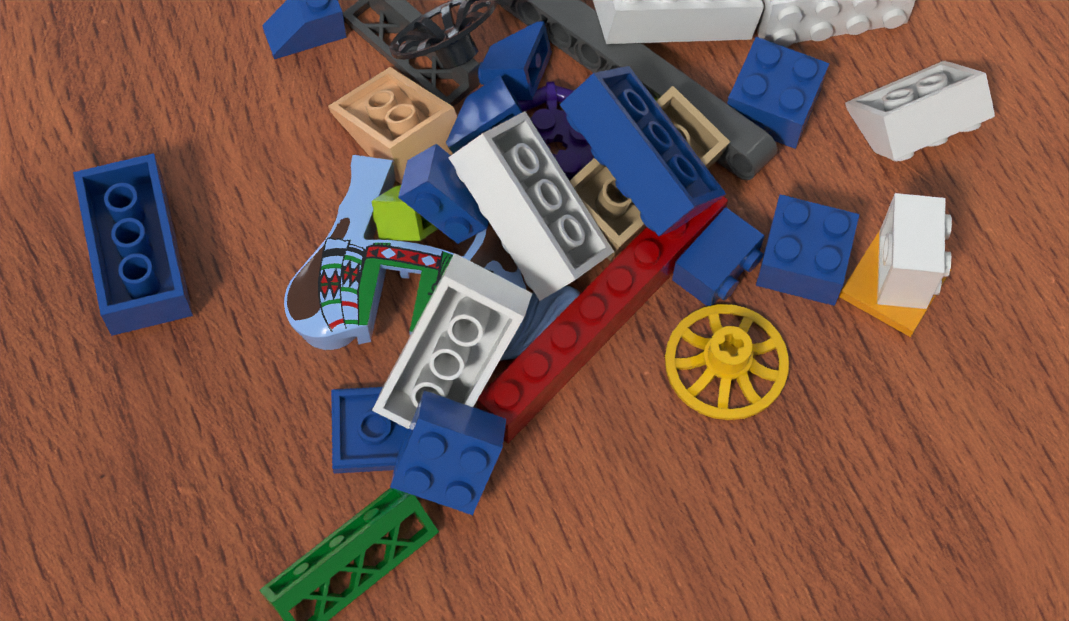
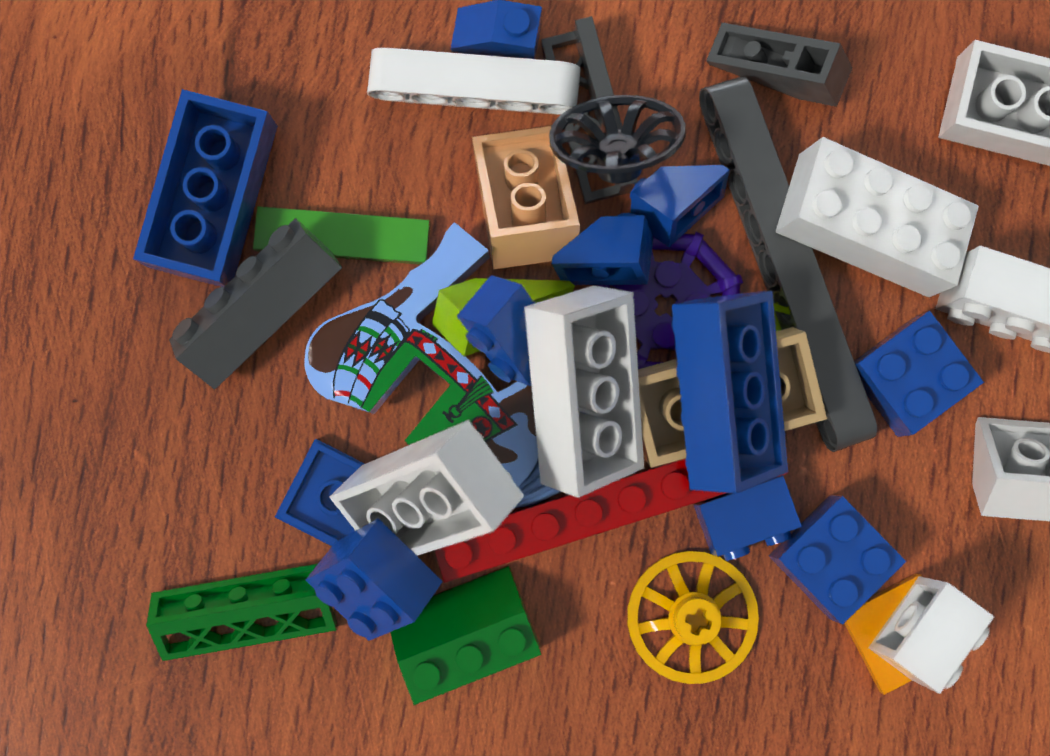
camera: 30 degrees right, 20 degrees up
(221, 303) = (253, 303): none -> dark grey brick
(262, 229) = (352, 234): none -> bright green tile
(304, 64) = (473, 80): none -> white beam
(551, 472) = (465, 636): none -> green slope

